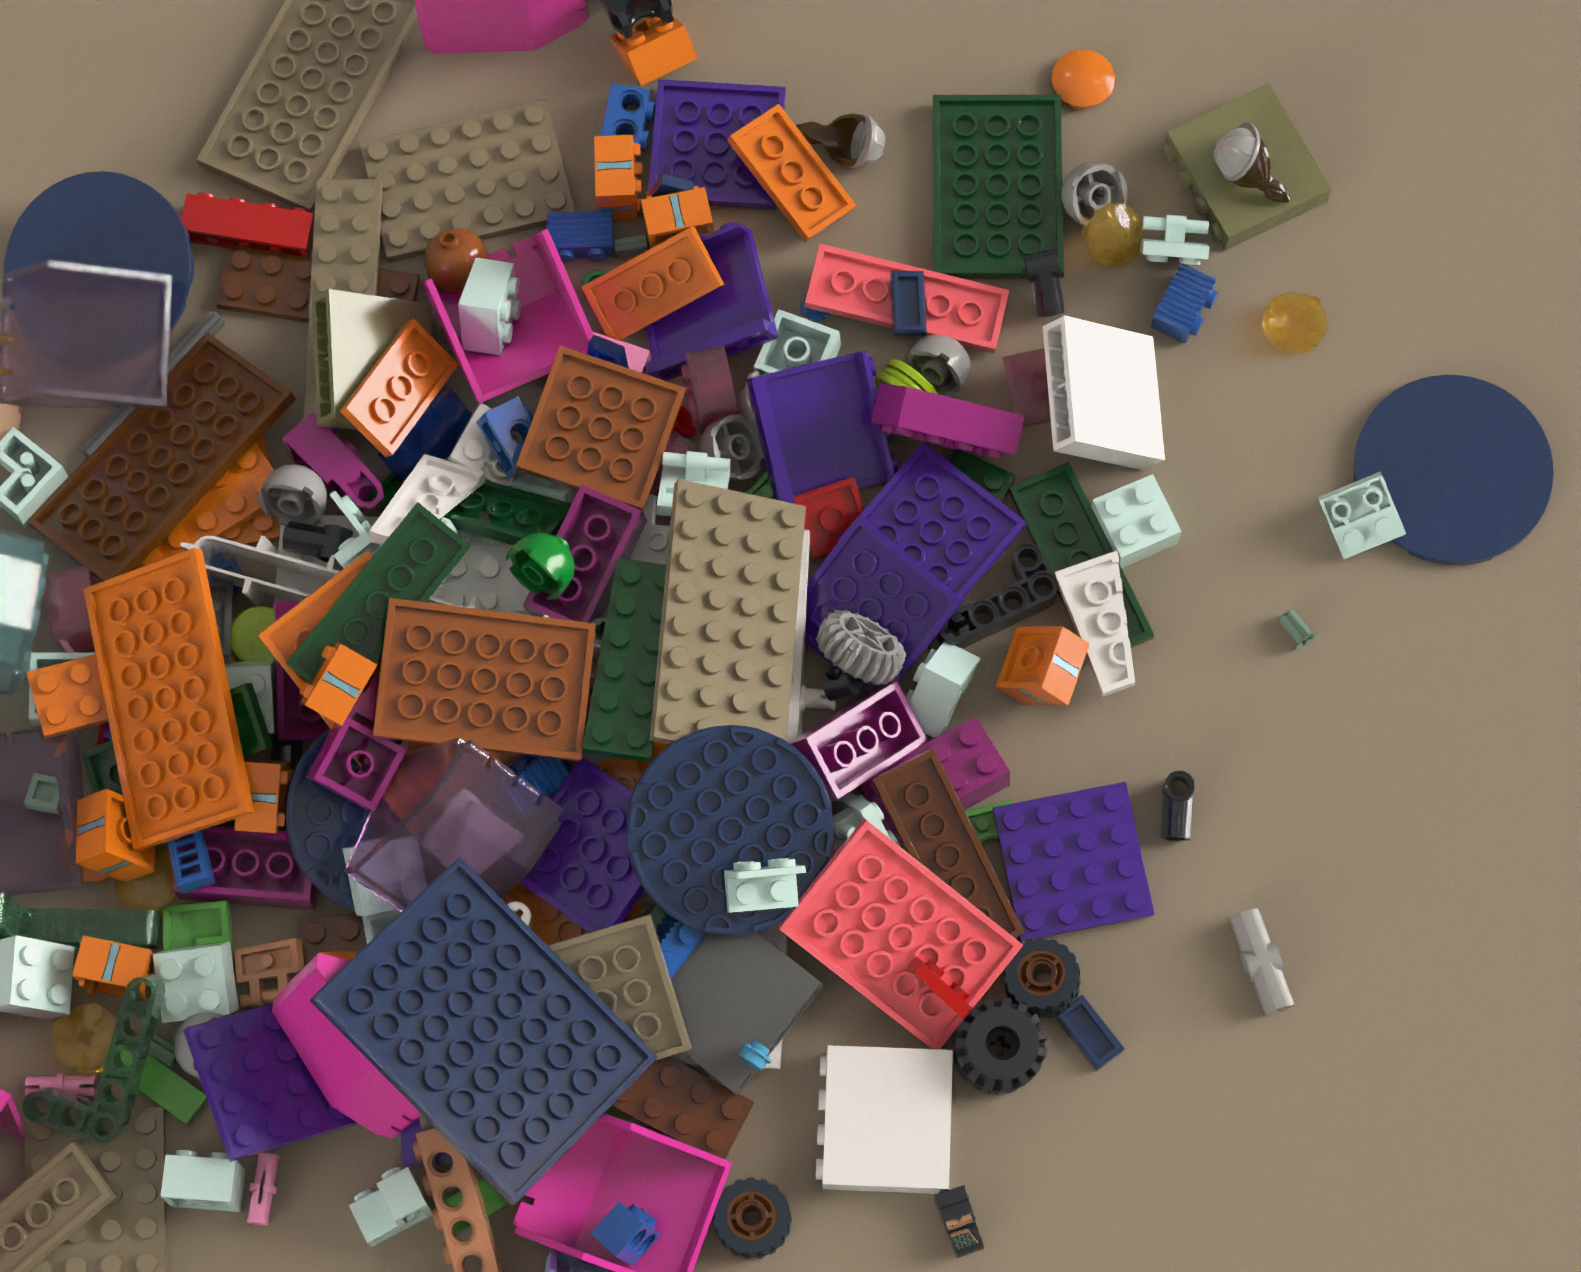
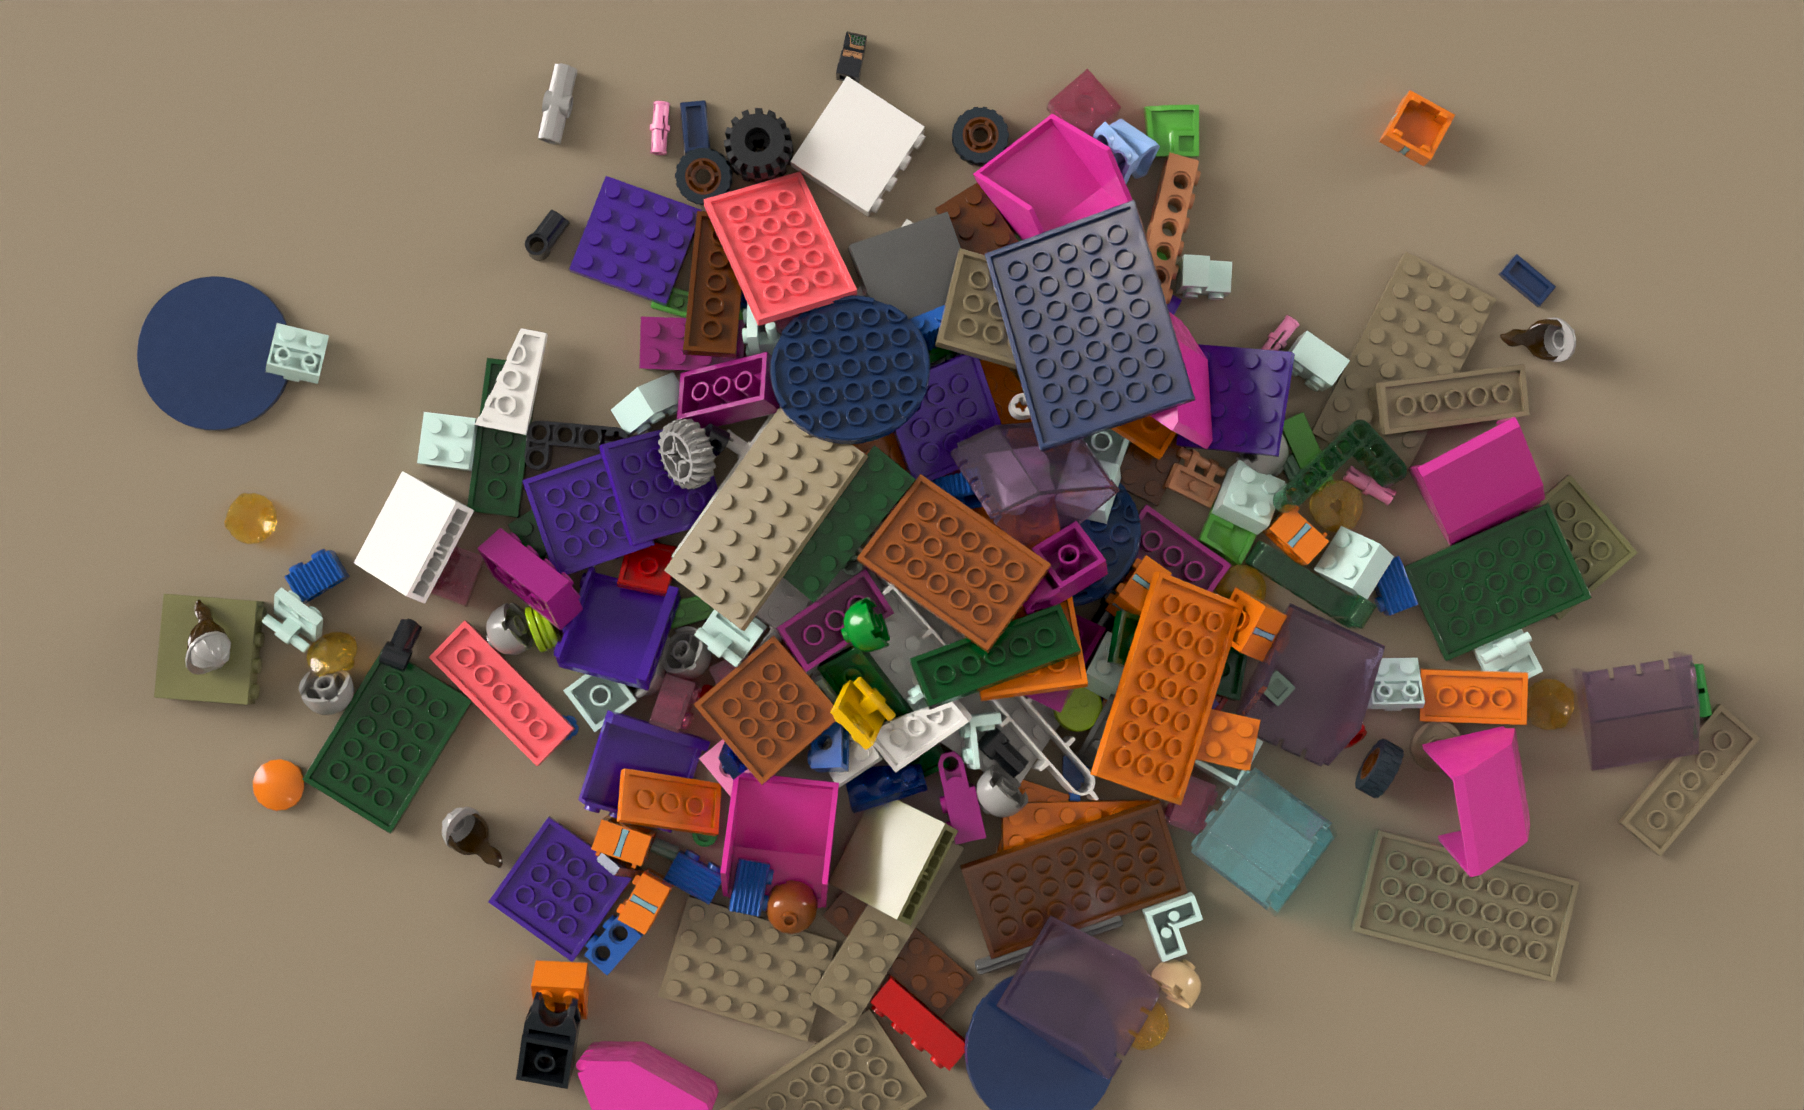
camera: 155 degrees left, 15 degrees up
(195, 880) = (1220, 572): blue slope -> none
(337, 683) = (1055, 610): orange container -> none
(399, 387) = (887, 825): orange plate -> none
(489, 306) = (790, 852): light aqua brick -> none
(496, 479) = (861, 711): none -> yellow plate
(511, 243) = (750, 887): none -> blue brick
(627, 1232) = (1066, 164): blue brick -> none
(755, 1055) = (920, 222): dark azure plate -> none
(762, 888) = (850, 319): light aqua bracket -> none
(791, 173) = (523, 832): orange plate -> none
(908, 303) = (503, 685): dark blue tile -> none
(931, 976) = (776, 207): red plate -> none
(1042, 665) = (574, 376): orange container -> none
(1128, 1006) = (660, 128): none -> bright pink pin
(1297, 628) = (390, 307): sand green piece -> none

